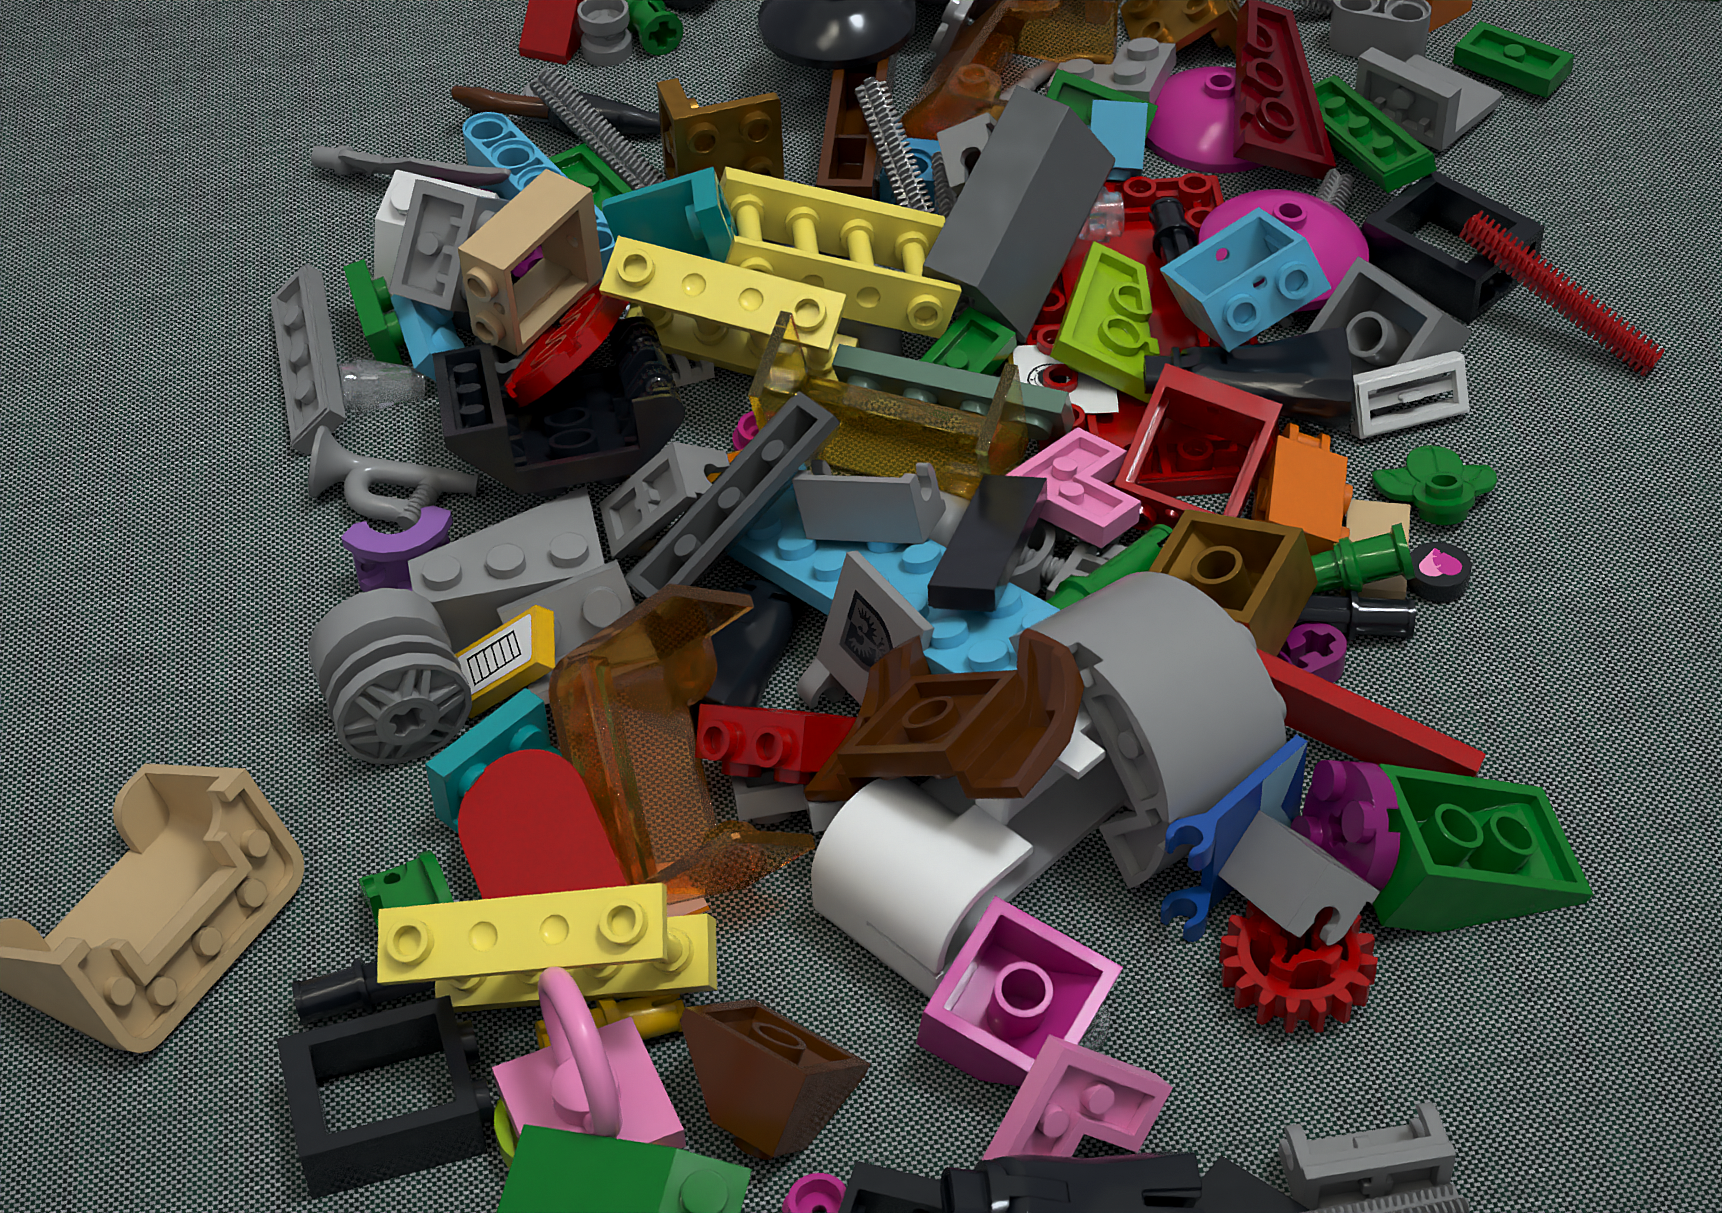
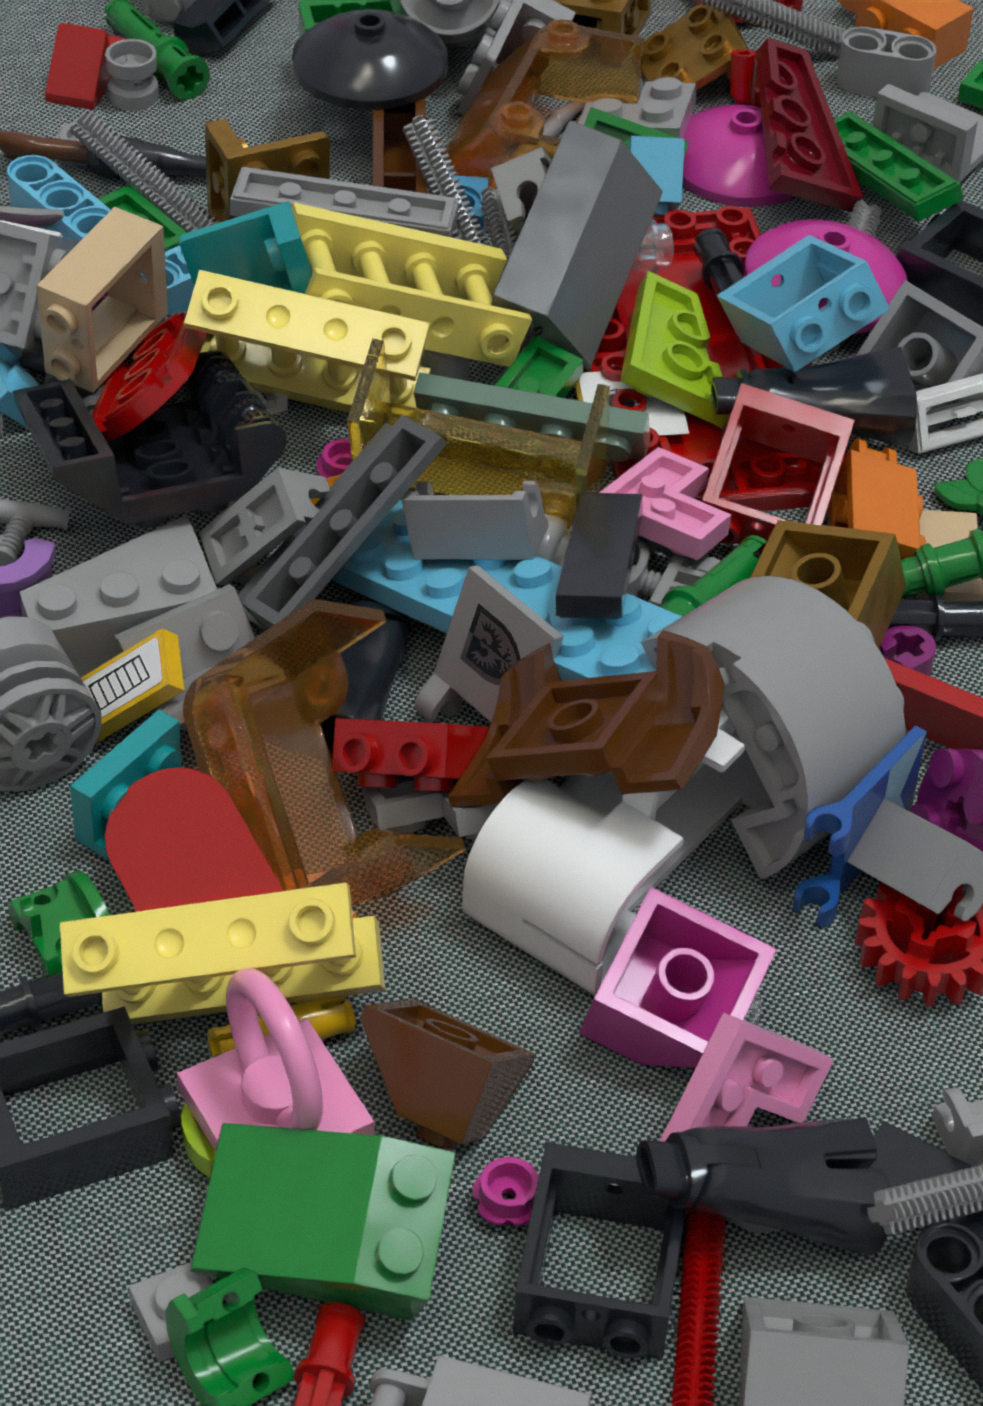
camera: 10 degrees left, 0 degrees up
(819, 168) = (415, 210): none -> light grey tile
(1224, 37) = (744, 78): none -> red arm

